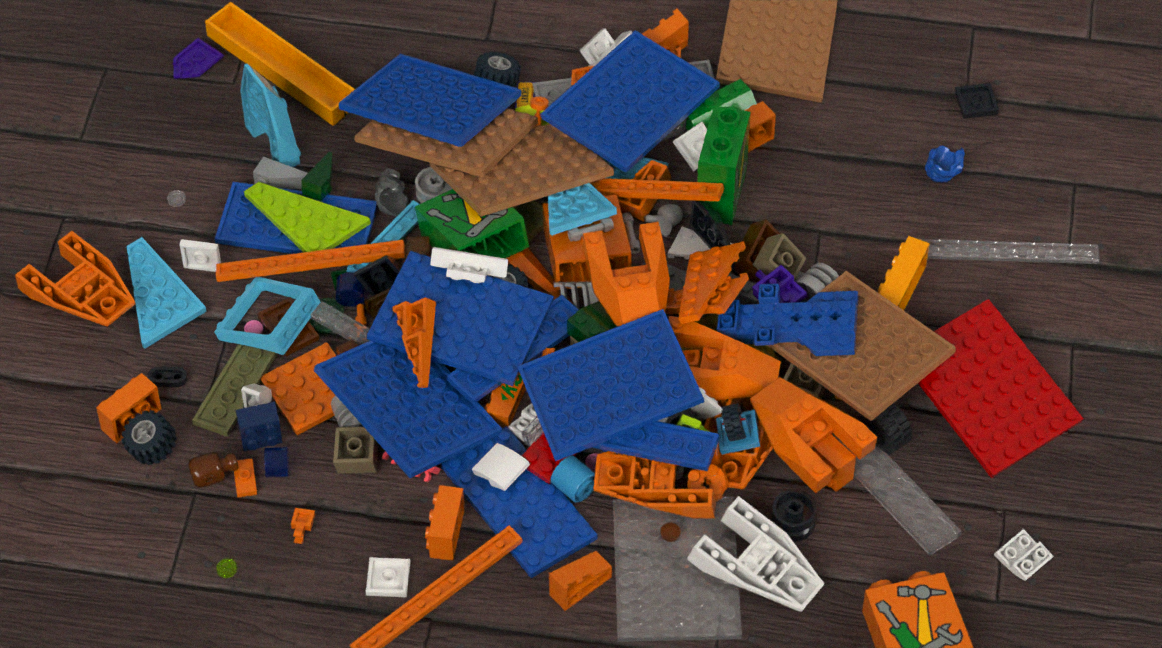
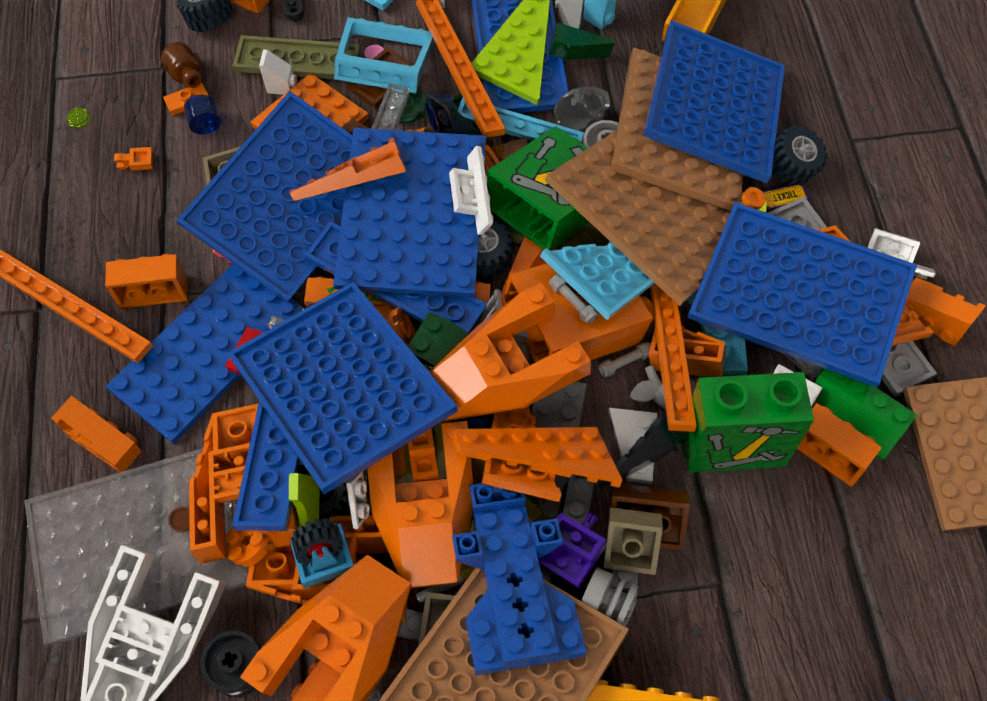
camera: 75 degrees right, 10 degrees up
(259, 426) = (237, 85): dark blue brick -> none
(388, 577) = (84, 253): white tile -> none
(501, 466) = (232, 312): white slope -> none
(573, 479) = (230, 391): dark azure piece -> none

